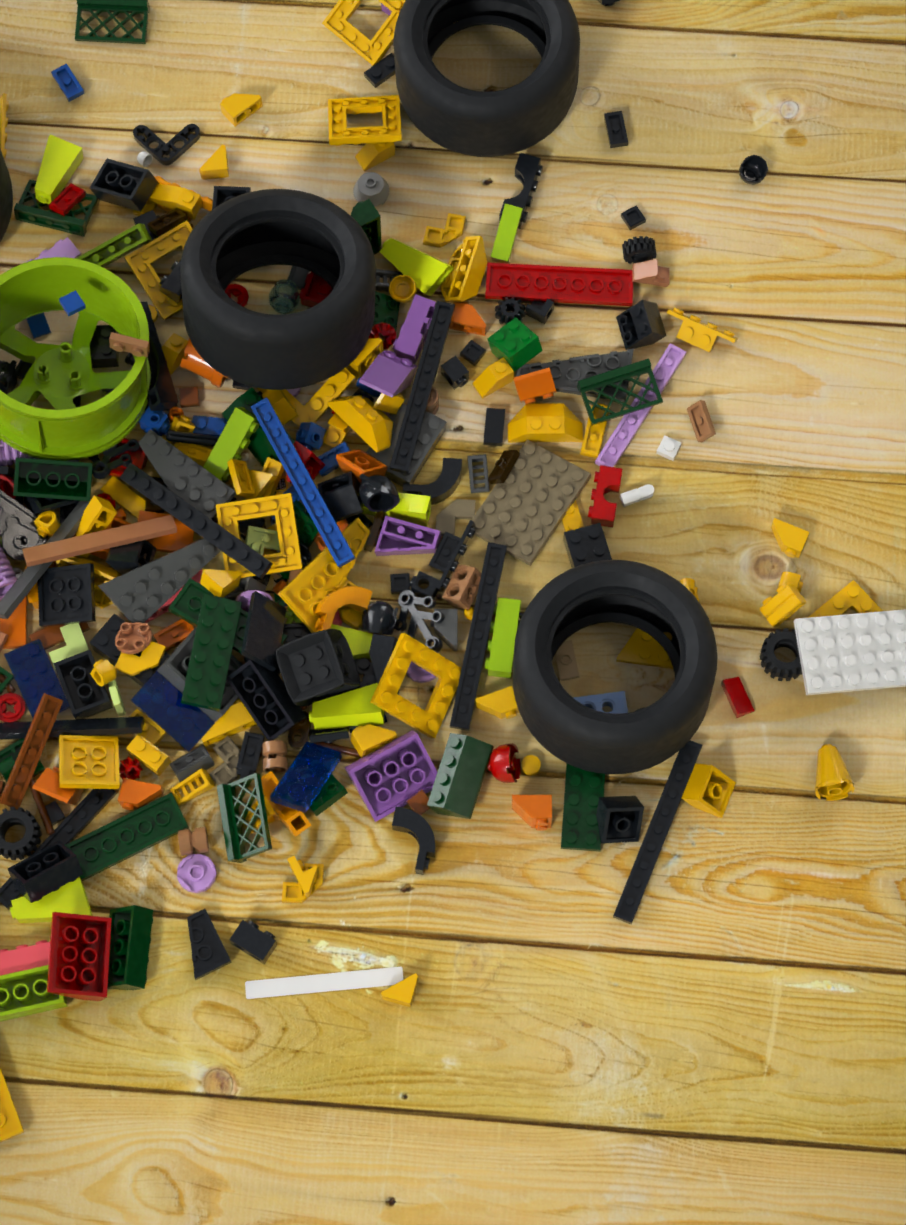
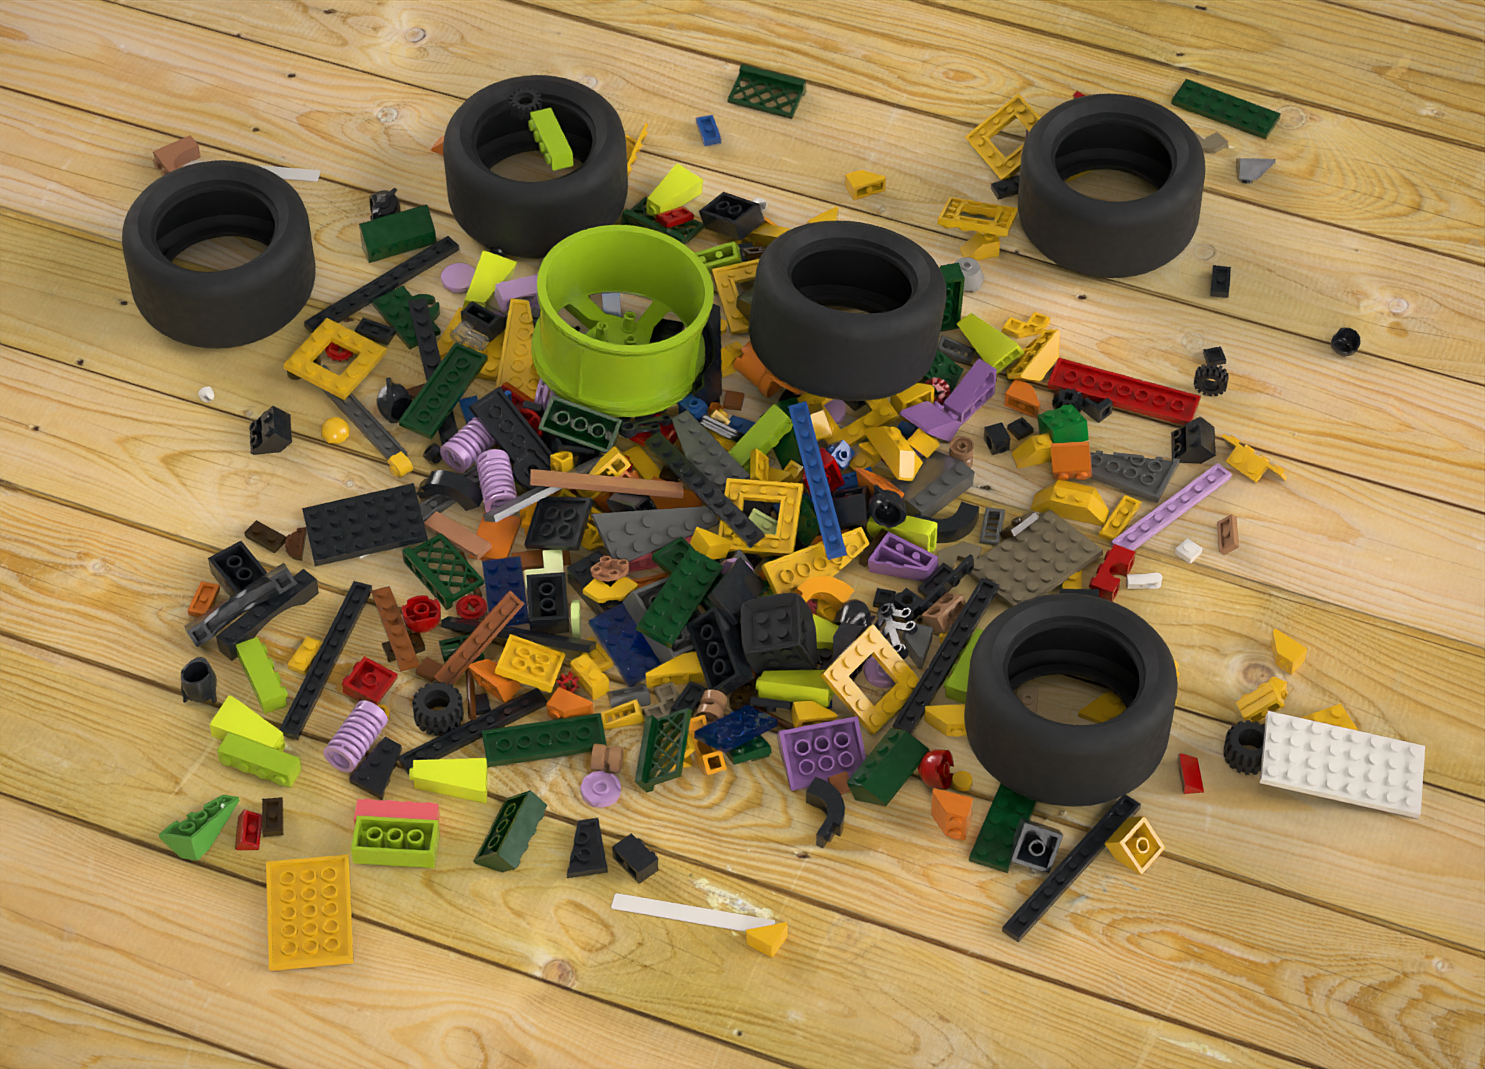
camera: 15 degrees right, 20 degrees down
(45, 871) = (455, 742): black brick -> none
(72, 303) = (648, 264): blue tile -> none
(79, 956) = (461, 820): red slope -> none
(103, 672) = (571, 590): yellow plate -> none
(129, 344) = (689, 307): medium nougat plate -> none
(164, 148) = (782, 205): black beam -> none
(292, 891) = (696, 830): yellow tile -> none
(305, 879) = (705, 813): yellow slope -> none
(402, 288) = (967, 356): yellow hair -> none
(422, 387) = (959, 435): black plate -> none
(494, 426) = (1020, 493): black tile -> none
(506, 232) = (1085, 336): lime tile -> none
(526, 171) = (1100, 322): black arch -> none
(614, 376) = (1156, 473): dark green fence -> none
(650, 273) = (1214, 402): nougat slope -> none
(832, 775) = (1265, 863): yellow cone -> none

